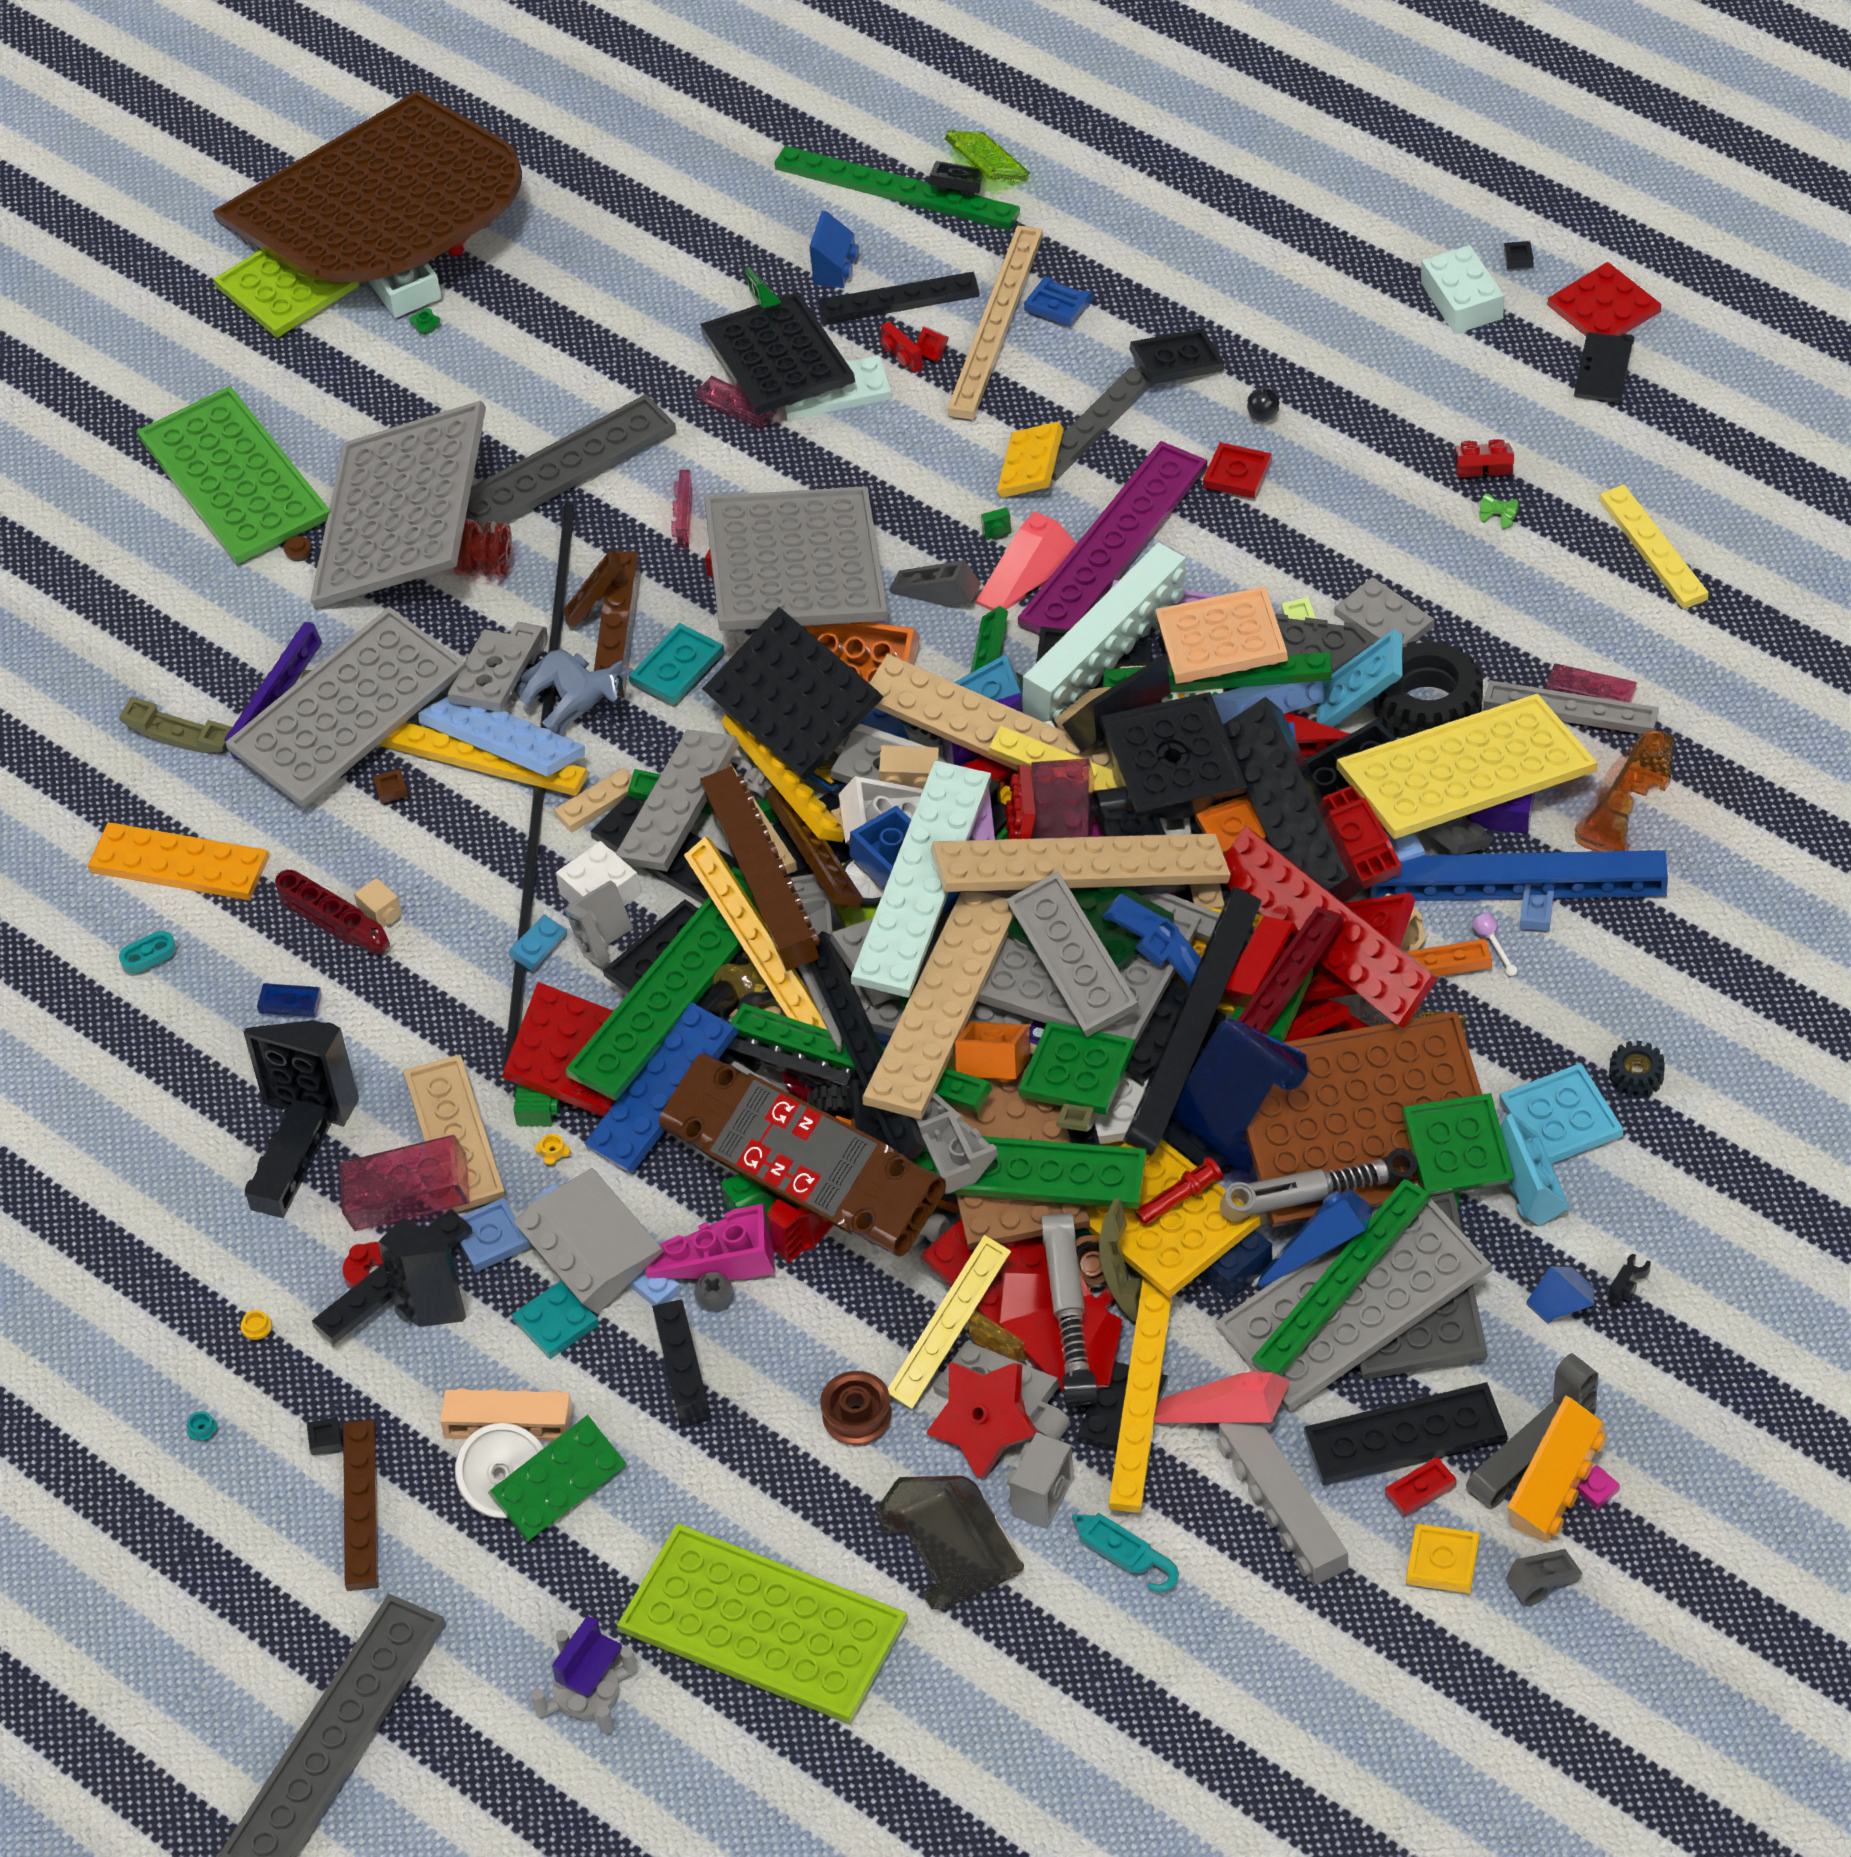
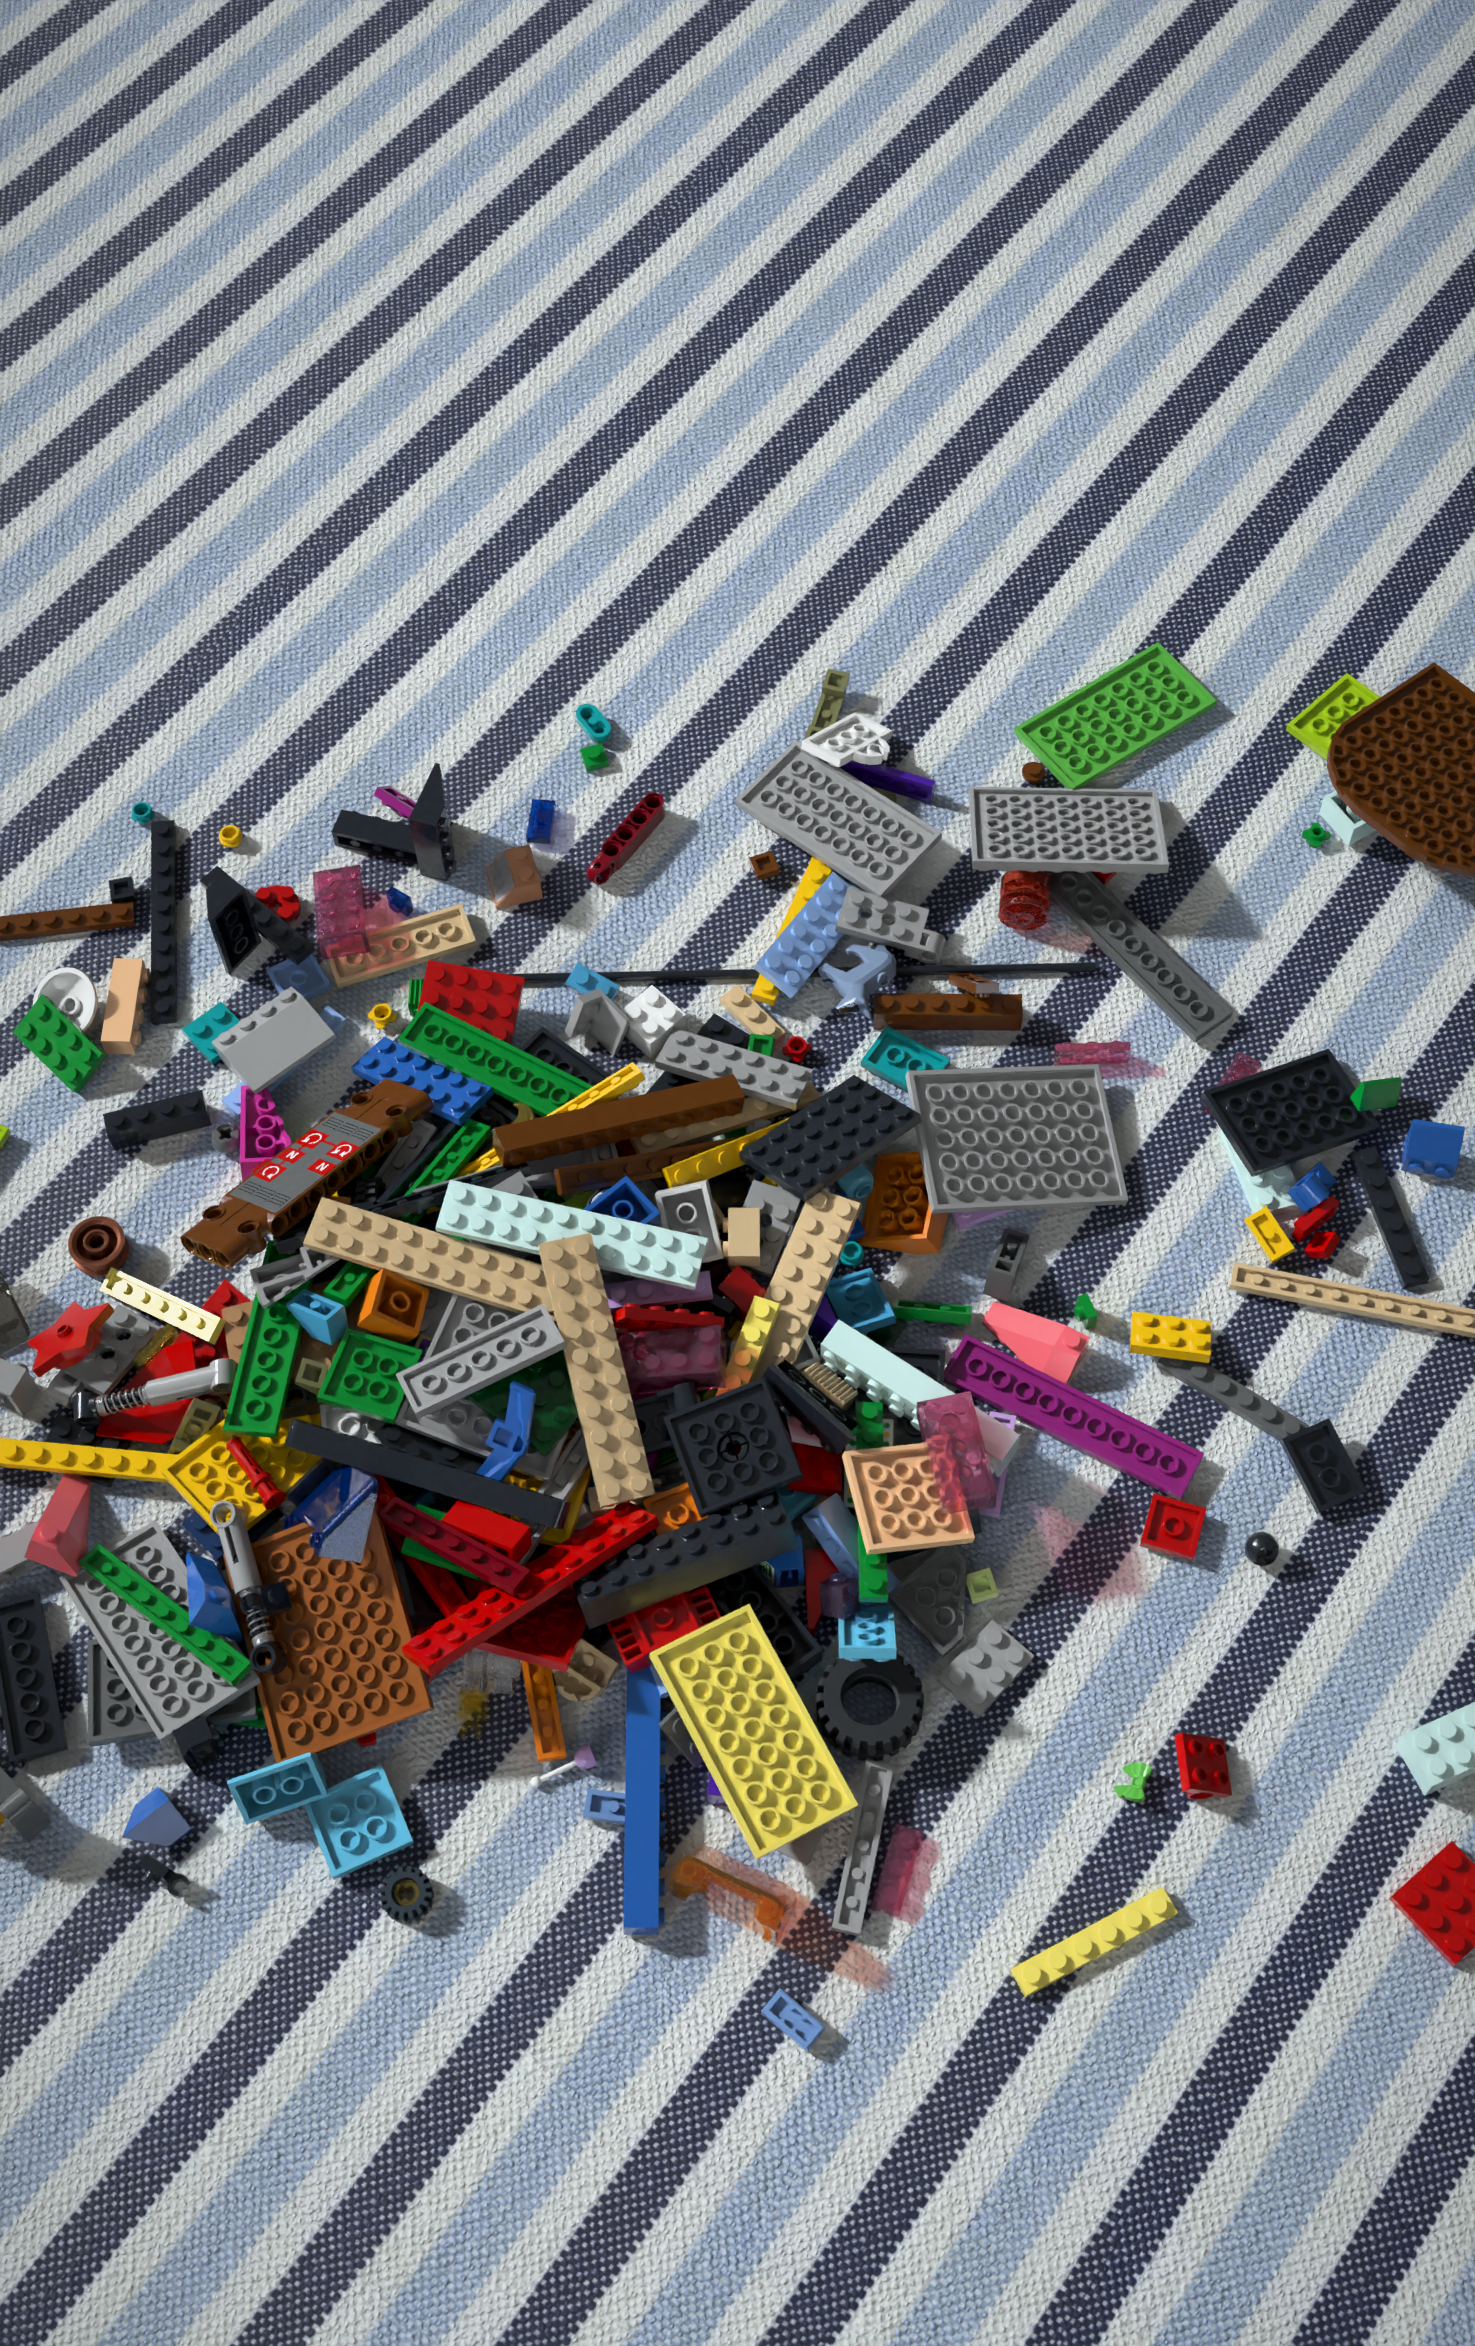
camera: 85 degrees right, 10 degrees up
(178, 861) = (689, 734): light orange plate -> none
(197, 954) = (594, 757): none -> green plate
(237, 693) = (849, 740): none -> white plate
(246, 1134) = (394, 799): none -> magenta plate
(367, 1390) = (163, 923): none -> black plate
(371, 1021) = (514, 877): none -> nougat slope
(378, 902) = (635, 869): tan brick -> none
(389, 1134) = (399, 901): none -> clear blue plate
(645, 758) = (796, 1042): none -> red plate
(868, 342) = (1312, 1187): none -> blue plate
(916, 382) = (1269, 1235): none -> yellow plate
(1003, 1113) = (319, 1316): none -> dark azure slope
(1057, 301) = (1388, 1352): blue plate -> none
(1183, 581) = (956, 1453): none -> clear pink brick
(1318, 706) = (839, 1596): none -> clear purple brick
(1335, 1157) = (269, 1598): none -> black plate
(1457, 1144) = (296, 1712): green plate -> none
(1492, 1244) = (199, 1743): none -> black window
(1607, 371) = (1350, 1899): black door -> none
(1743, 761) = (793, 2020): none -> medium blue plate

